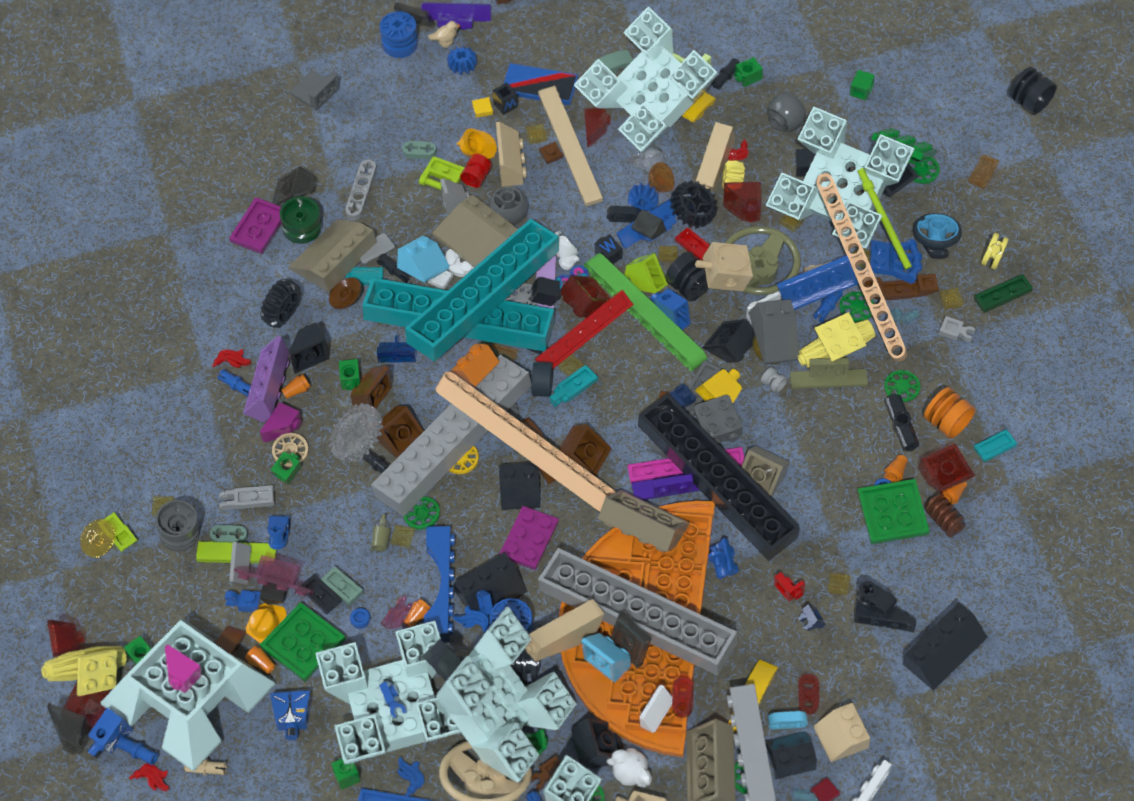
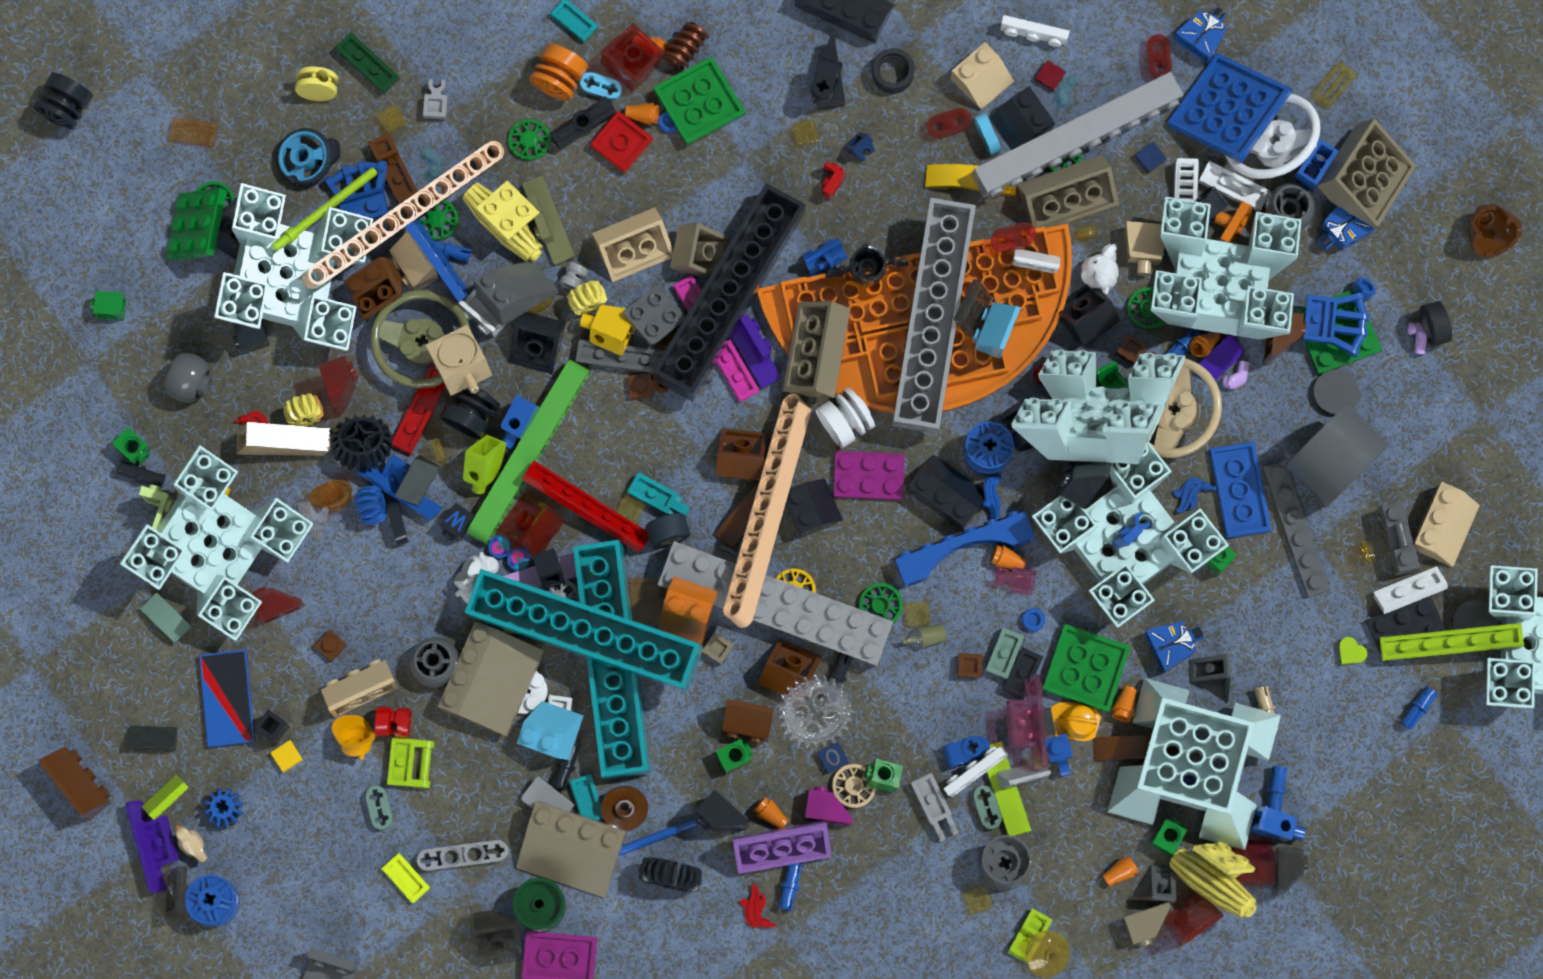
camera: 115 degrees left, 20 degrees up
(82, 613) = (1146, 924): none -> dark tan slope
(105, 631) = (1156, 886): none -> dark grey slope
(132, 612) = (1121, 871): none -> orange cone
(153, 775) = (1295, 761): red piece -> none
(181, 670) = (1204, 753): dark pink slope -> none
(254, 736) = (1212, 674): none -> dark grey slope
(258, 529) = (975, 770): none -> white plate
(316, 304) = (658, 836): none -> blue bar
(318, 442) = (832, 757): none -> dark blue tile
(343, 558) = (970, 665): none -> reddish brown plate
(362, 152) = (405, 878): none -> neon yellow tile
(395, 352) = (679, 717): clear blue panel -> none
(431, 391) = (717, 648): none -> dark tan plate
(452, 194) = (443, 731): light grey slope -> none
(484, 602) = (975, 484): blue tile -> none
(485, 30) = (165, 797): none -> lime tile
(530, 35) = (152, 738): none -> pearl dark grey slope
(536, 134) = (307, 674): clear yellow tile -> none
(565, 631) = (991, 375): tan slope -> none
(570, 146) = (314, 624): tan tile -> none
(580, 526) = (848, 415): none -> white wheel
(670, 769) = (1086, 232): none -> clear yellow tile
(683, 396) = (636, 366): dark blue tile -> none
(696, 572) = (867, 257): none -> black helmet
(752, 380) = (587, 297): none -> light yellow gear
(786, 427) = (633, 244): none -> tan slope
(813, 243) = (375, 286): none -> reddish brown slope
(874, 651) = (893, 53): none -> black tyre
(876, 446) = (621, 142): none -> red plate
(927, 444) = (602, 81): none -> medium azure beam

